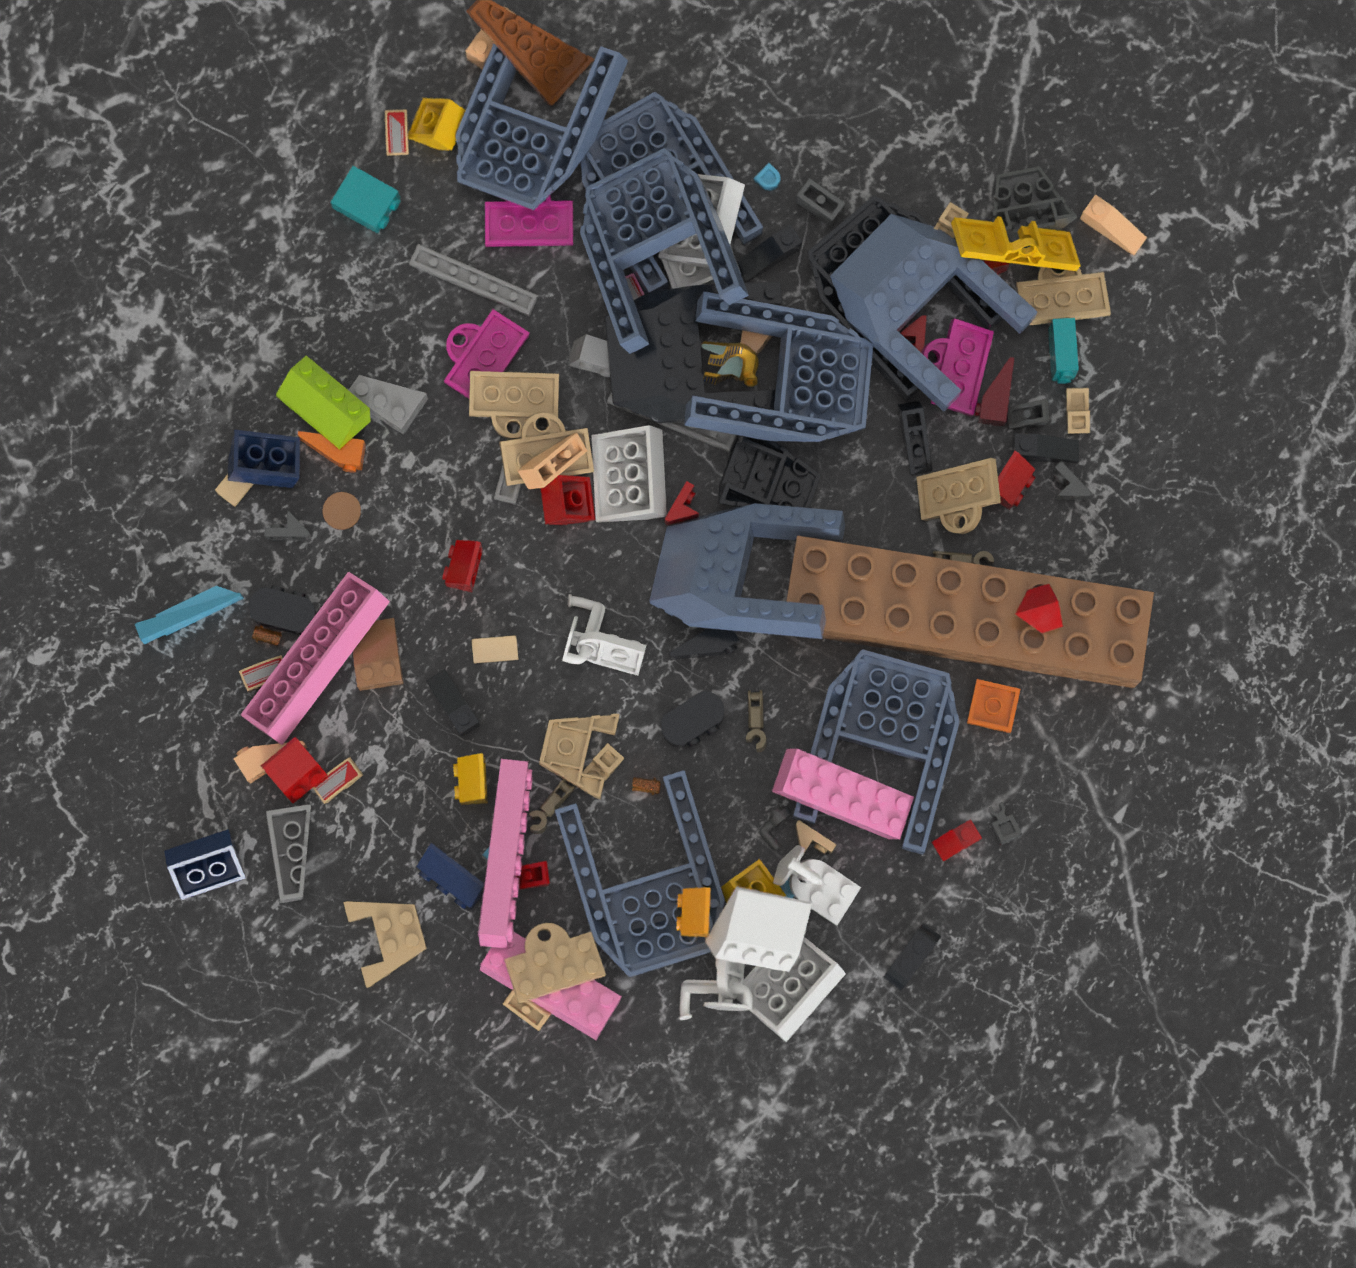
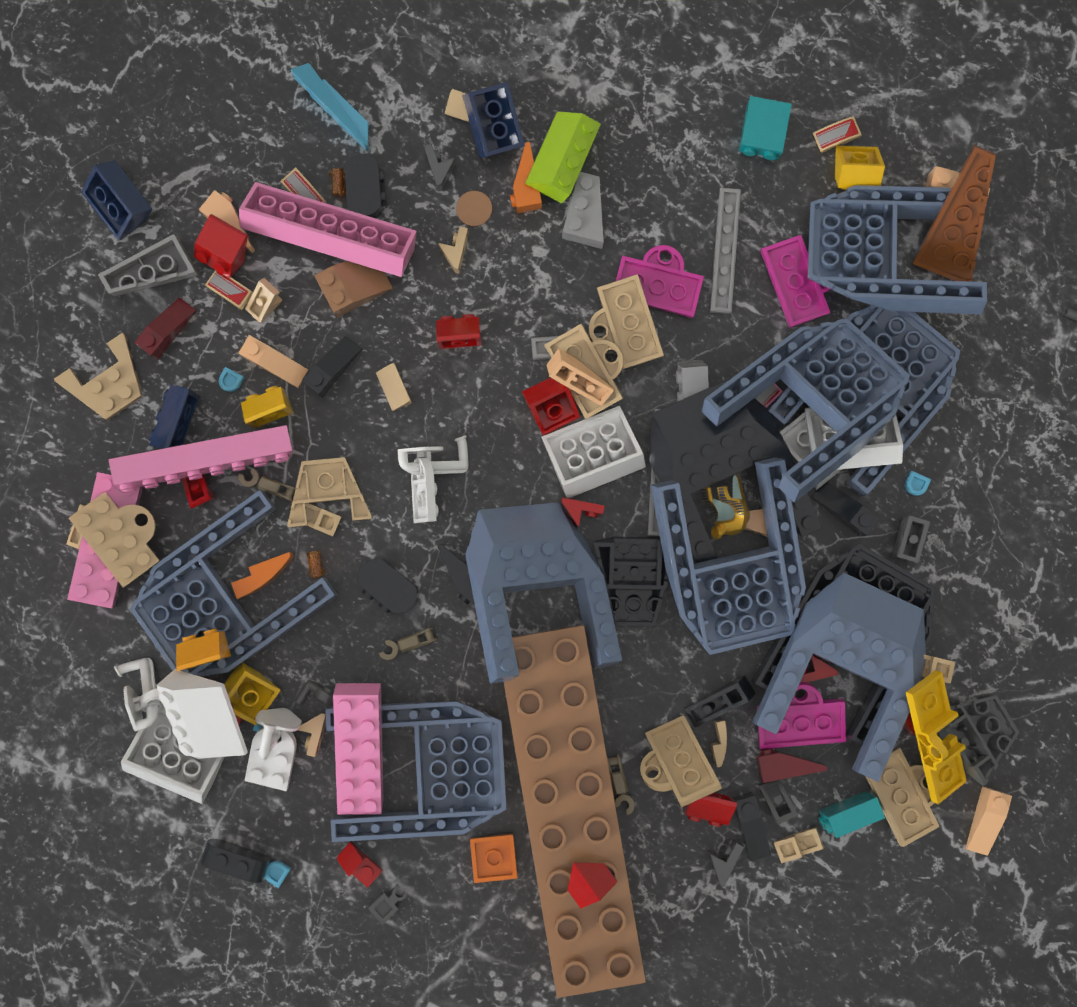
camera: 70 degrees right, 5 degrees up
(354, 856) = (165, 328): none -> dark red slope
(362, 749) = (263, 300): none -> tan slope
(384, 544) = (455, 254): none -> tan slope
(427, 759) = (273, 361): none -> light nougat slope
(430, 810) = (230, 380): none -> medium azure tile
(639, 841) = (261, 575): none -> orange slope
(939, 923) = (277, 873): none -> medium azure tile
(961, 454) = (719, 748): none -> tan slope

